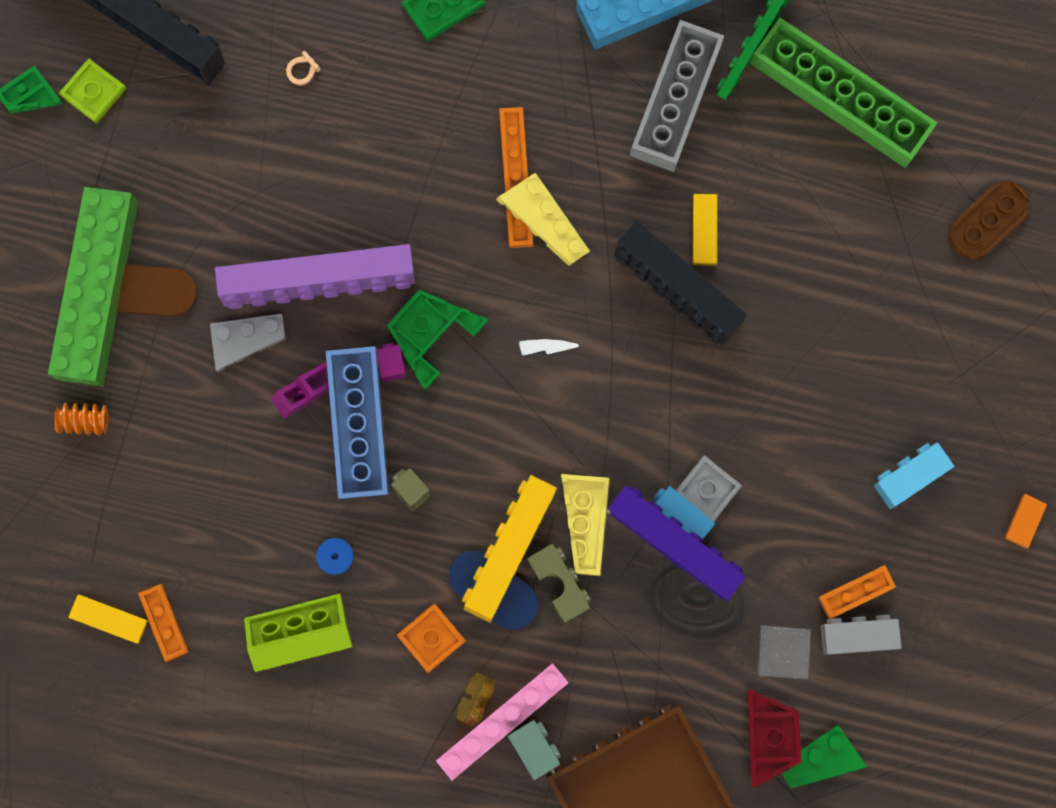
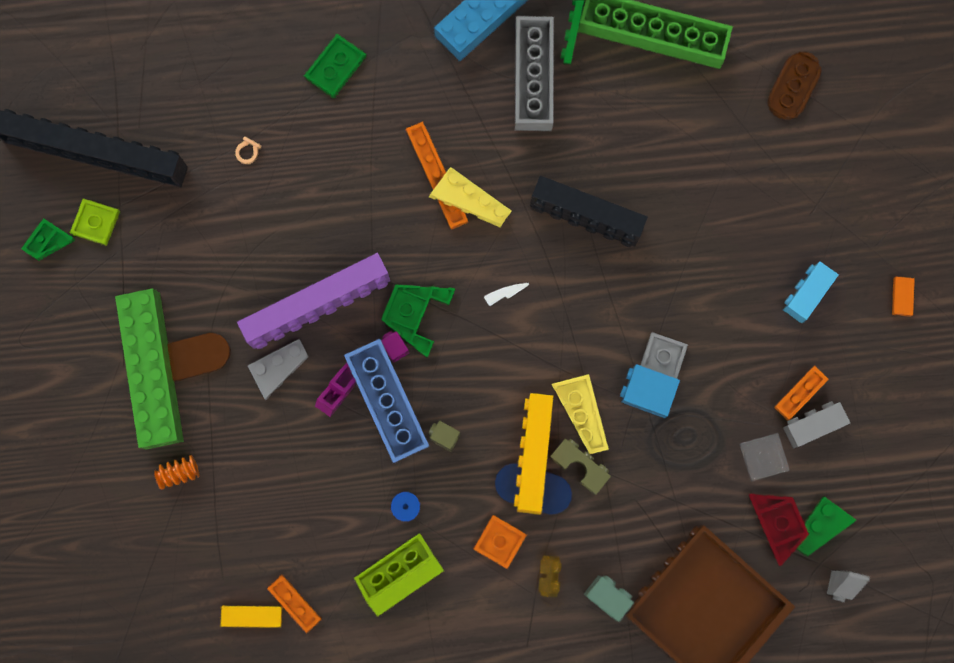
camera: 15 degrees left, 0 degrees up
(502, 722) = (576, 585): bright pink brick -> none
(675, 543) = (658, 405): dark purple brick -> none
(704, 229) = (590, 165): yellow tile -> none

